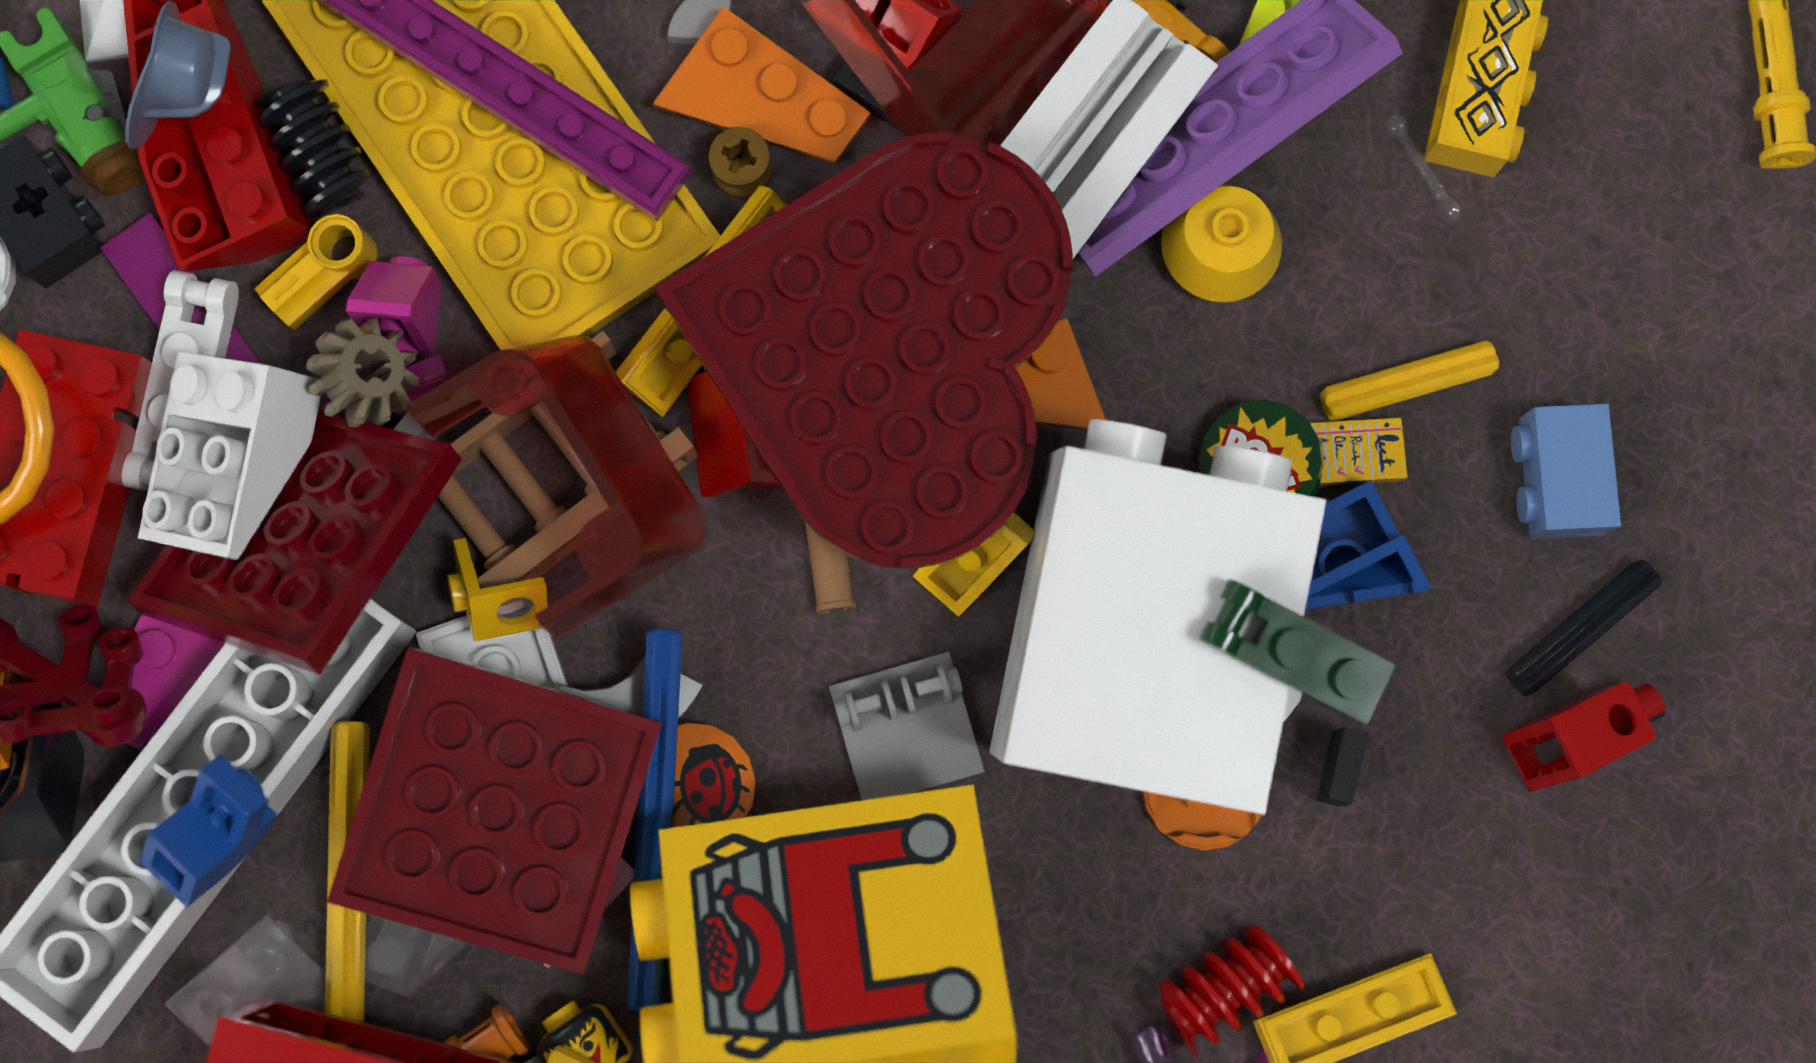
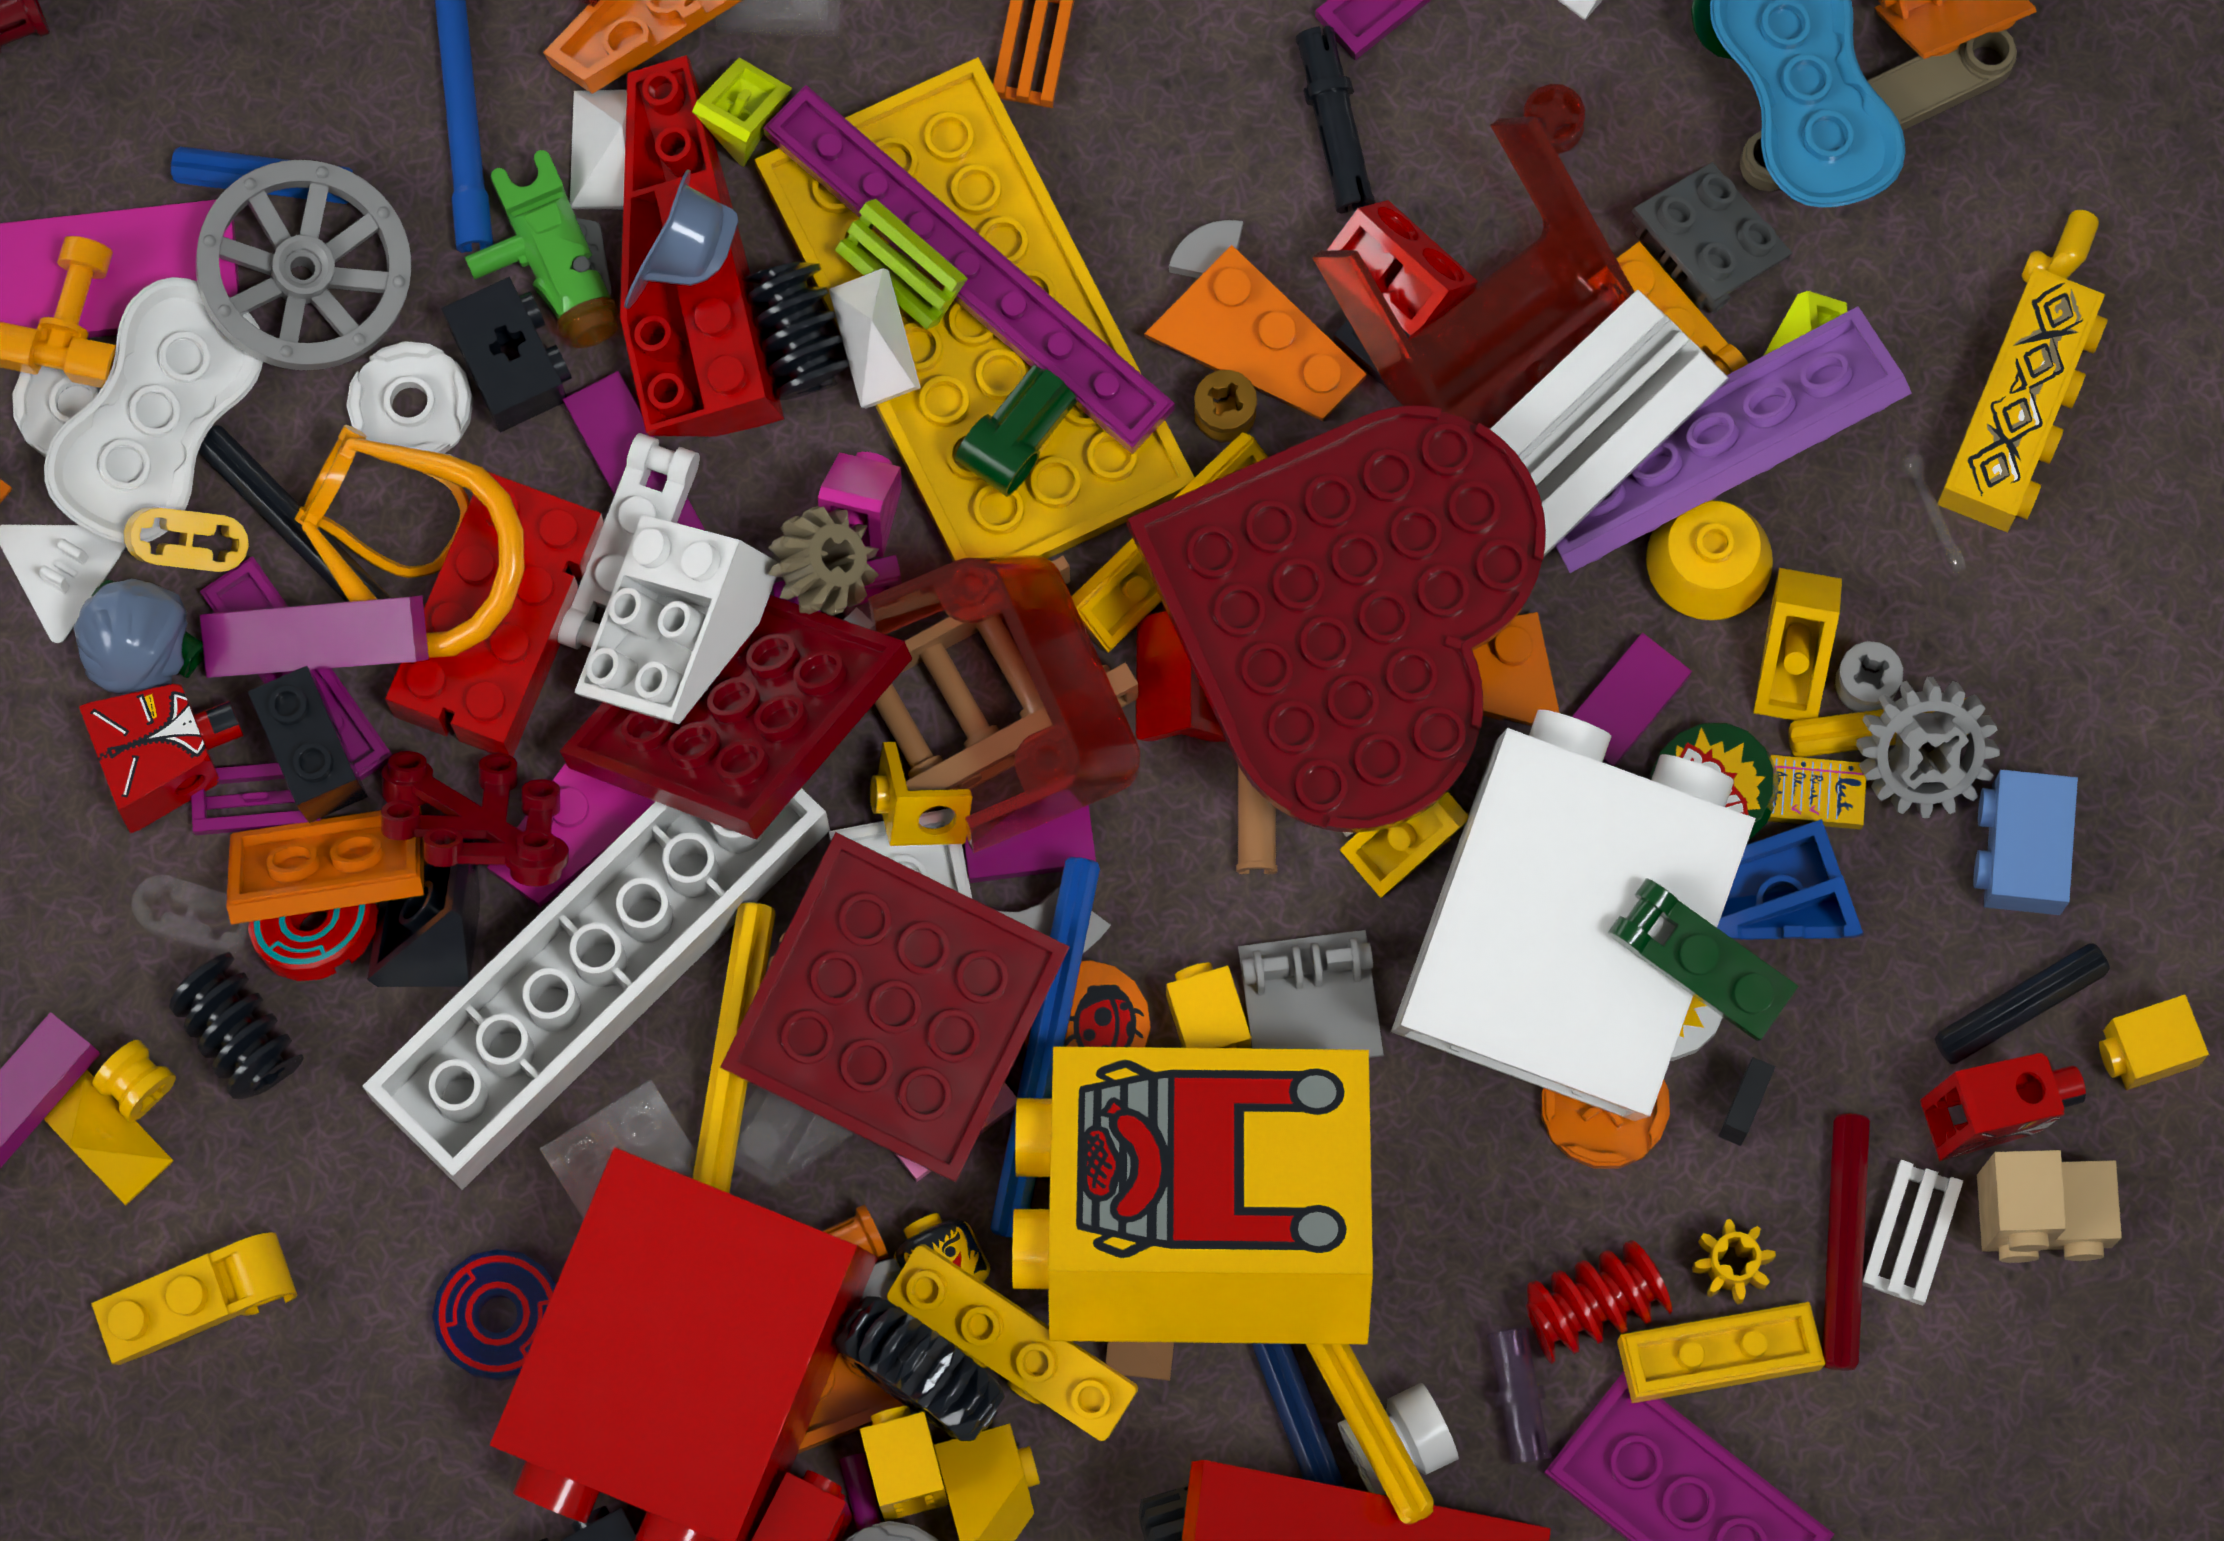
camera: 15 degrees right, 5 degrees down
(209, 832) = (621, 979): blue brick -> none
(312, 275) = (773, 456): yellow piece -> none
(390, 144) = (874, 338): none -> white slope
(401, 77) = (912, 289): none -> lime tile
(533, 229) = (1007, 444): none -> dark green piece
(621, 622) = (1036, 850): none -> magenta tile
(808, 759) = (1207, 1008): none -> yellow brick
(1168, 383) = (1633, 695): none -> magenta tile
(1320, 312) = (1798, 645): none -> yellow slope
(1339, 916) = (1723, 1275): none -> yellow gear
(1380, 345) = (1861, 688): none -> light grey wheel
(1455, 887) = (1846, 1241): none -> dark red axle
(1460, 394) = (1943, 729): none -> light grey gear
(1540, 874) = (1928, 1180): none -> white tile
(1644, 827) = (2047, 1204): none -> tan brick
(1717, 649) = (2153, 1043): none -> yellow brick

